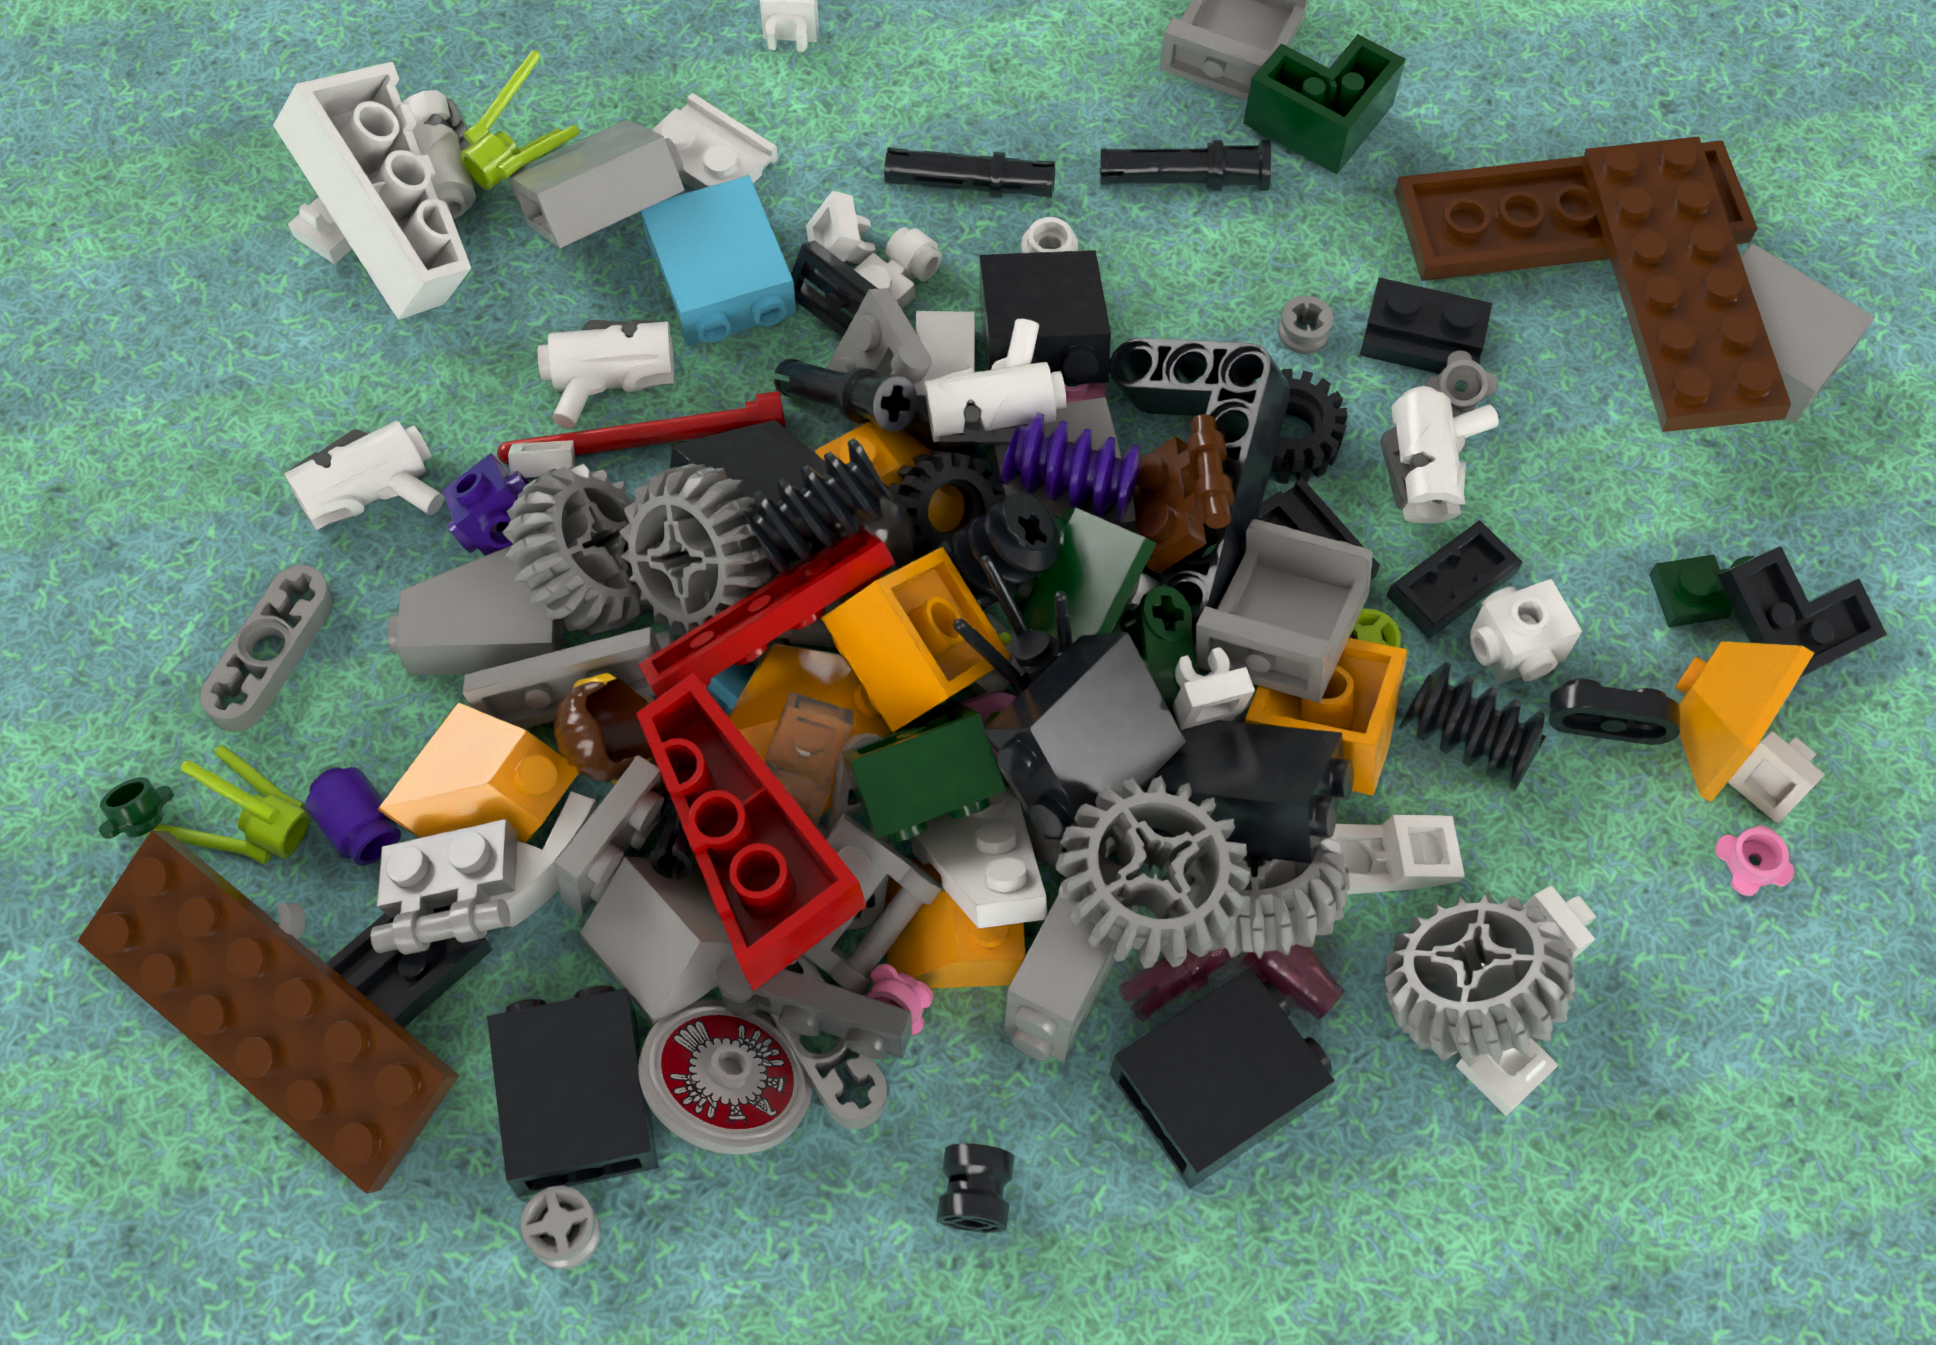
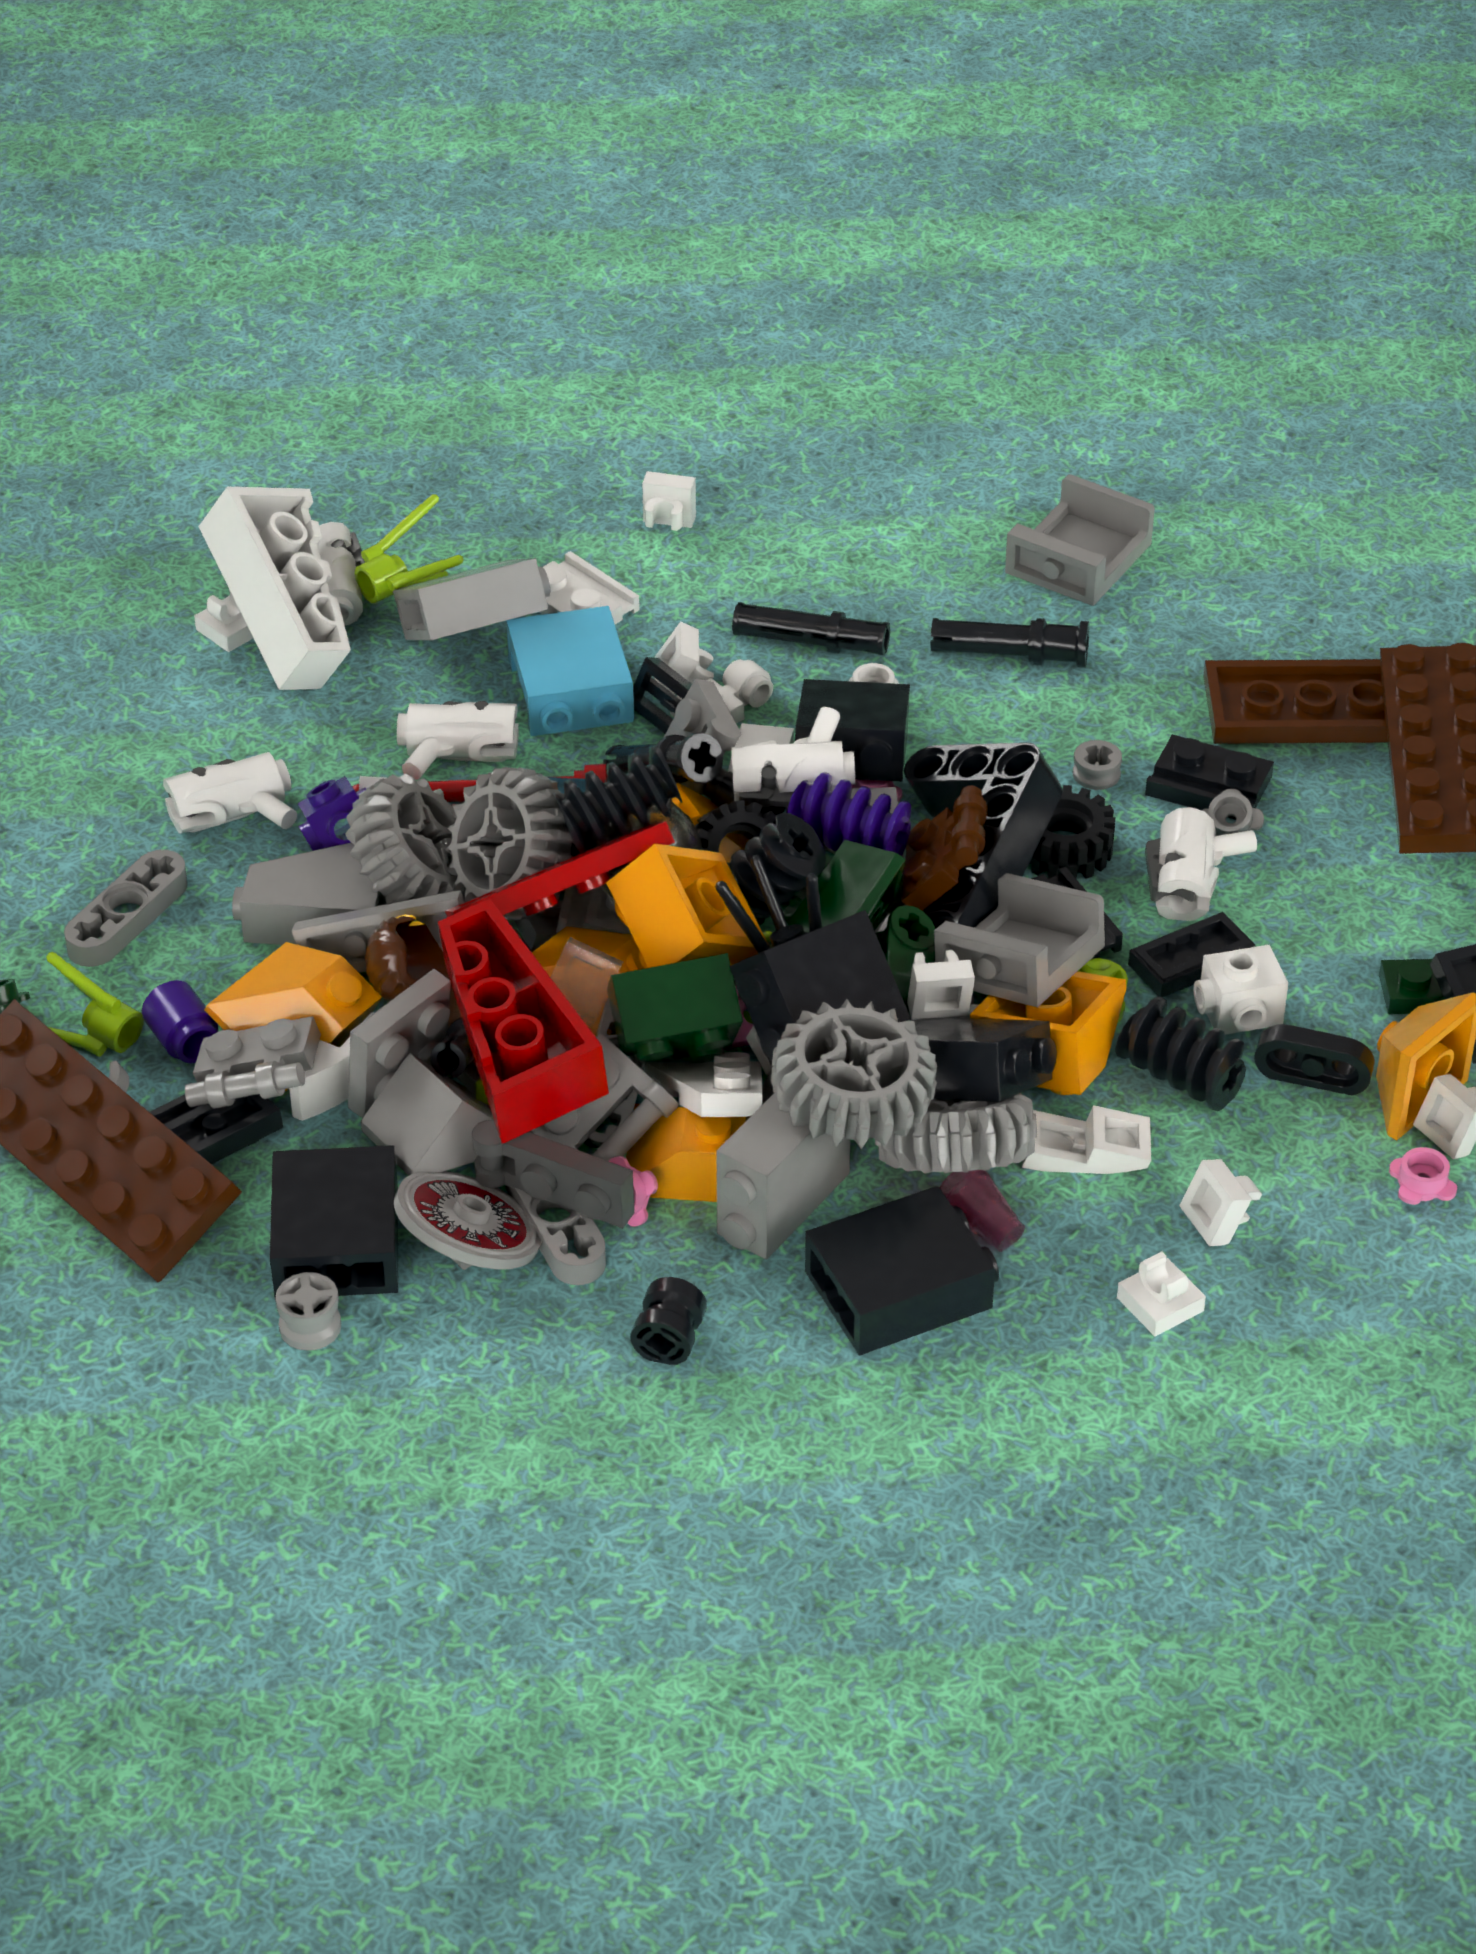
camera: 10 degrees right, 20 degrees down
(1170, 982) = (880, 1191): clear pink pin -> none
(1321, 108) = (1144, 603): dark green brick -> none
(1480, 978) = (1140, 1213): light grey gear -> none

